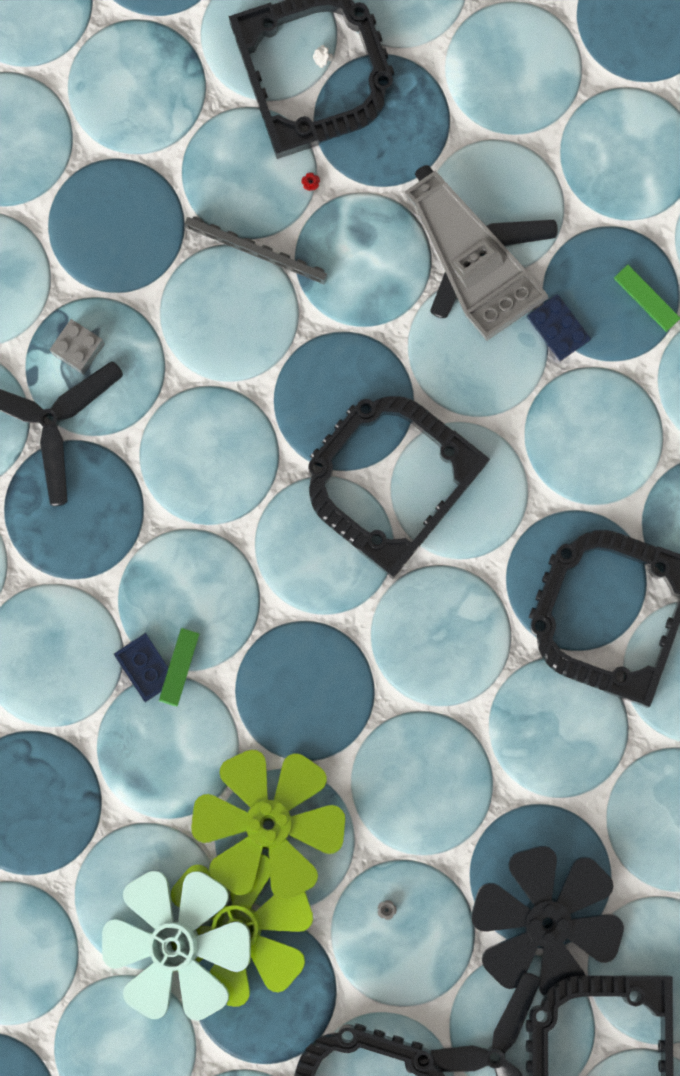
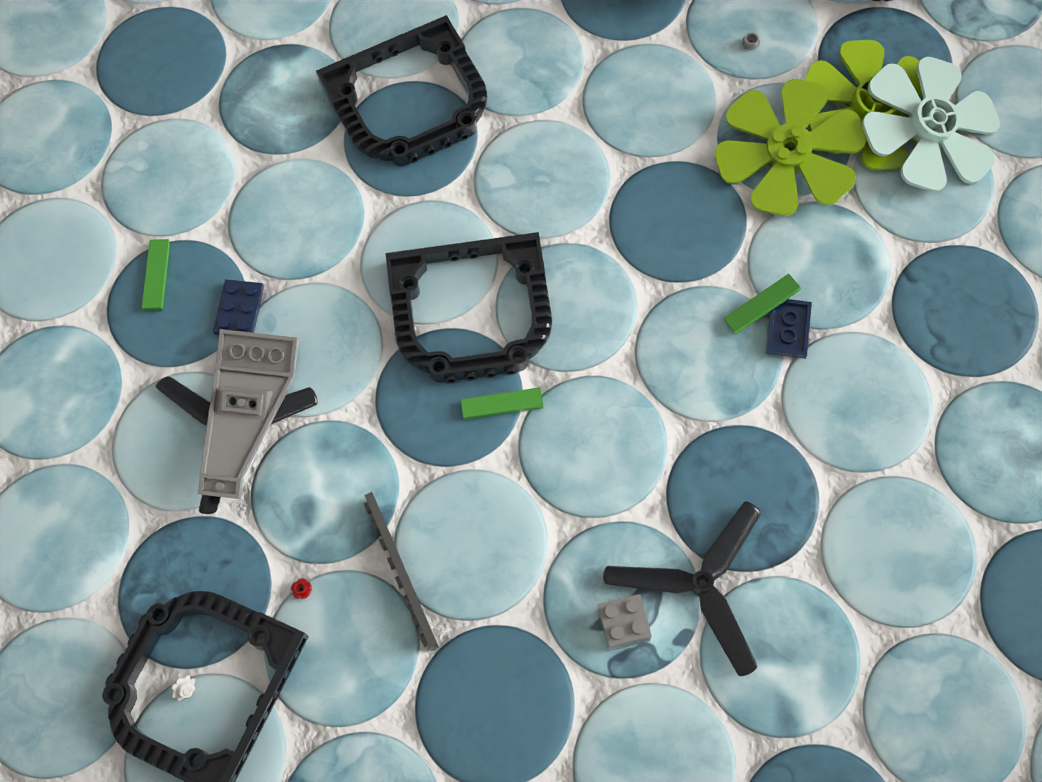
camera: 135 degrees left, 15 degrees down
(299, 426) = (501, 403): none -> bright green tile

